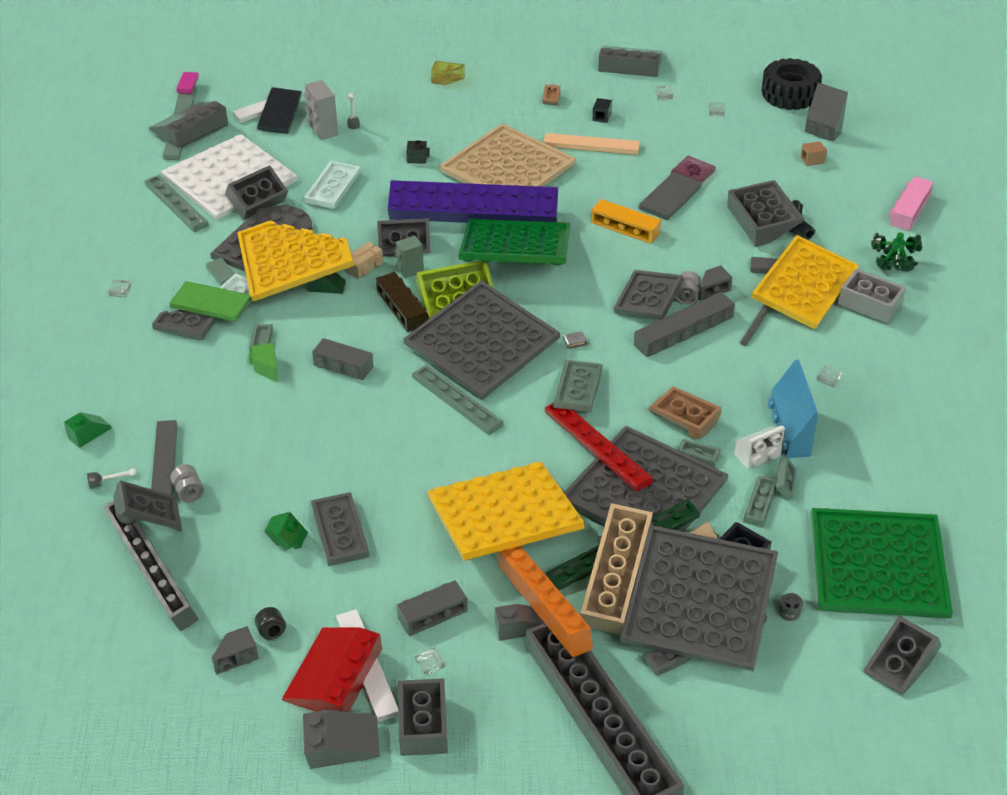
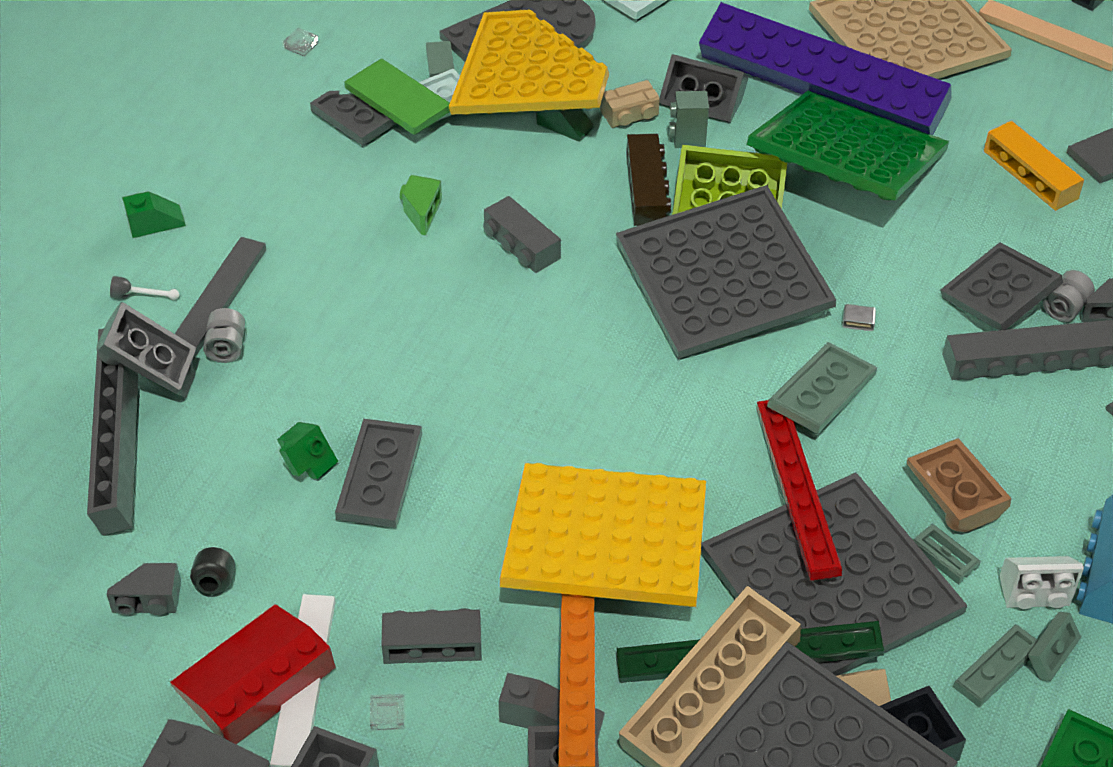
camera: 25 degrees right, 5 degrees up
(261, 334) = (440, 164): sand green tile -> none
(457, 399) = (645, 347): sand green tile -> none

